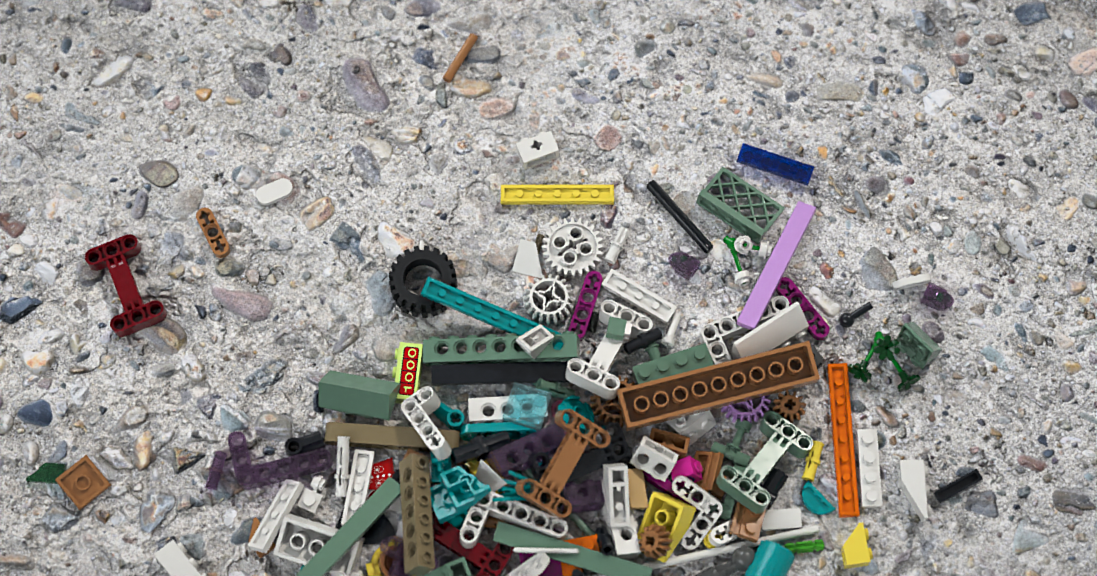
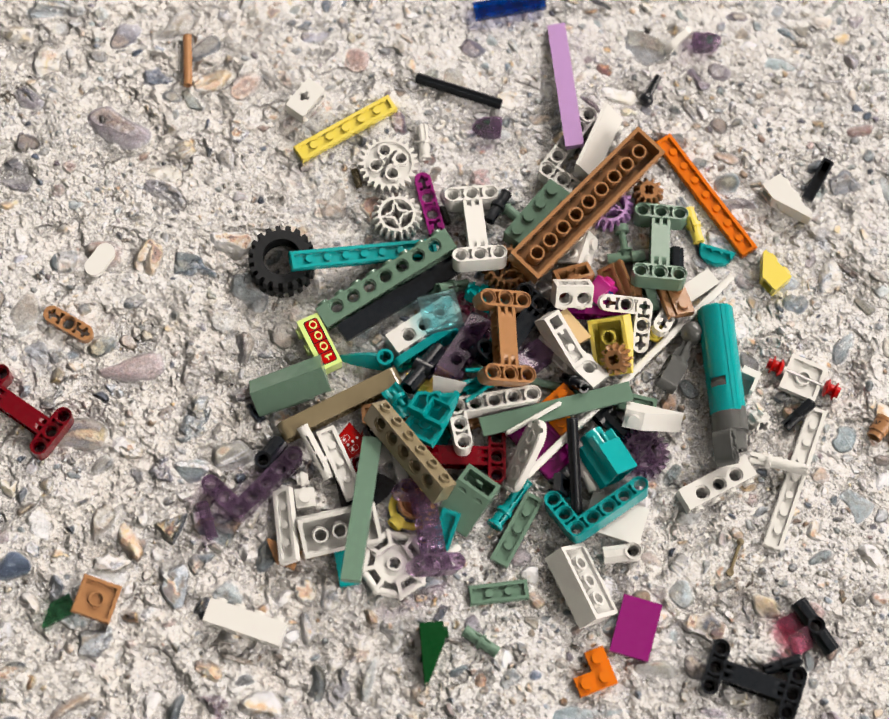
camera: 40 degrees left, 0 degrees up
(417, 409) = (354, 369): white beam -> none
(527, 259) = (356, 195): white sticker -> none
(535, 340) = (414, 253): white slope -> none
(618, 329) = (474, 206): sand green piece -> none
(639, 296) = (468, 173): white plate -> none
(668, 340) = (516, 195): white piece -> none
(729, 215) = (501, 66): sand green fence -> none
(743, 245) = (530, 82): white plant -> none
(805, 306) = (621, 109): magenta beam -> none
(805, 546) = (734, 294): bright green axle -> none
(869, 468) = (740, 206): white plate -> none
(886, 348) = (698, 100): dark green plant -> none
(917, 345) = (716, 87): sand green slope -> none

